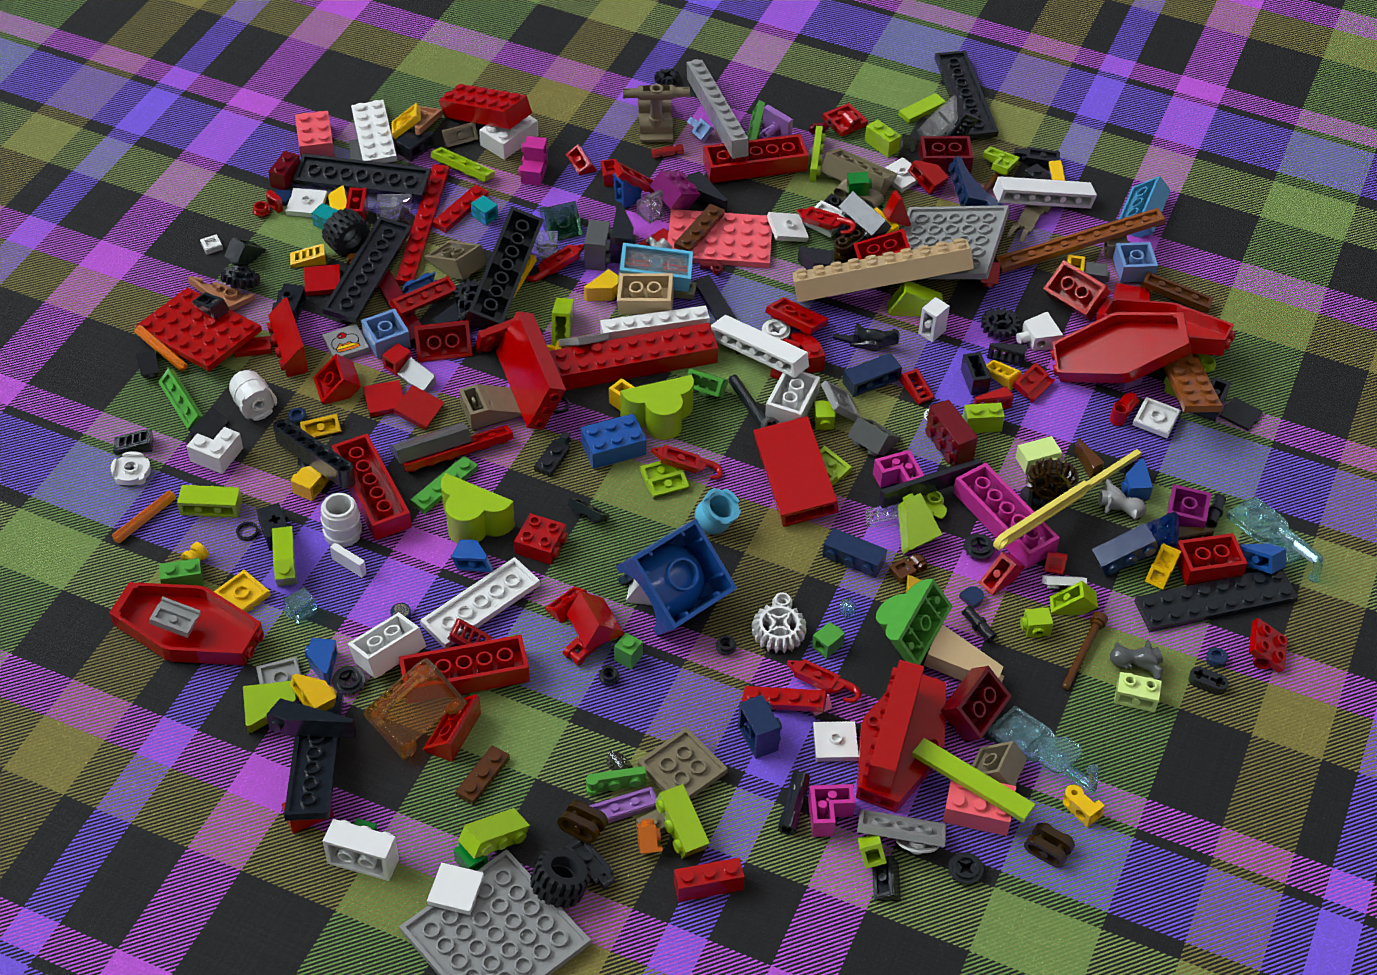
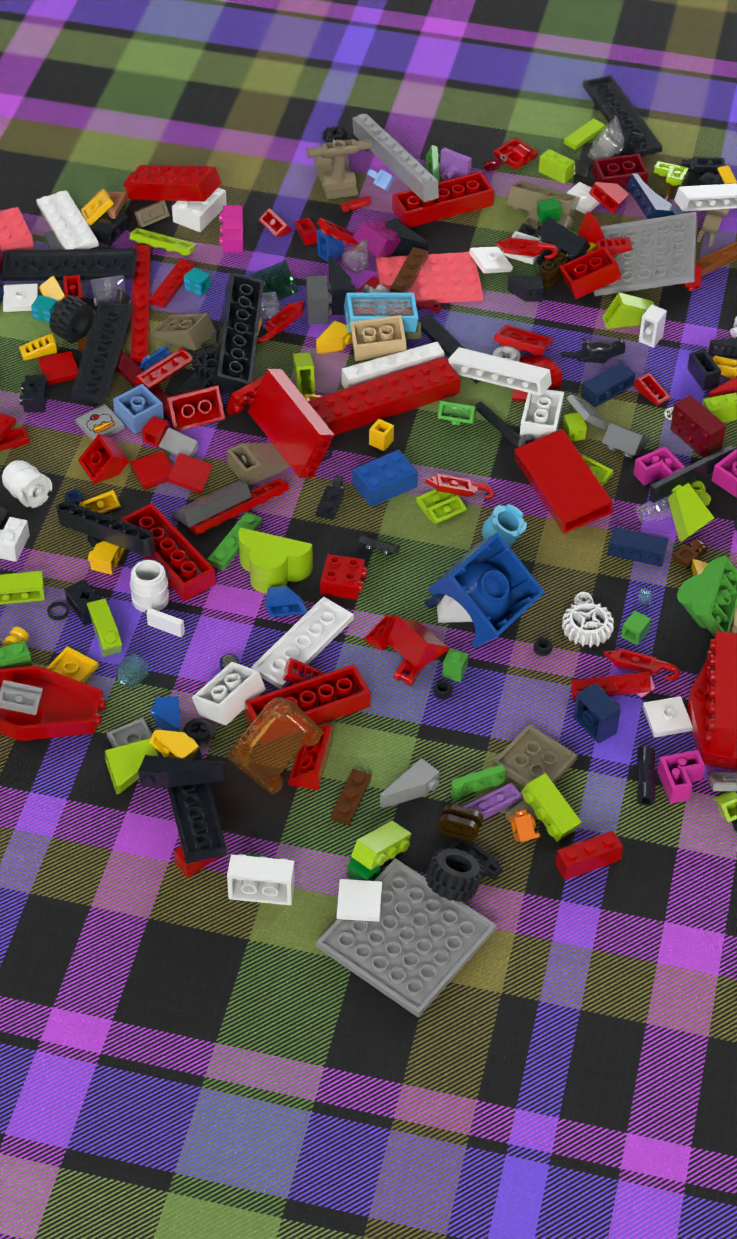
camera: 10 degrees left, 0 degrees up
(287, 339) = (44, 427): red slope -> none
(547, 772) = (411, 785): none -> light grey slope
(583, 339) = (330, 388): light grey tile -> none
(617, 761) = (472, 765): clear smoke slope -> none
(660, 405) = (420, 439): lime brick -> none
(818, 149) = (499, 193): lime plate -> none
(883, 270) = (595, 286): tan brick -> none
(916, 229) = (615, 245): none -> red slope
(1000, 323) = (712, 322): black gear -> none

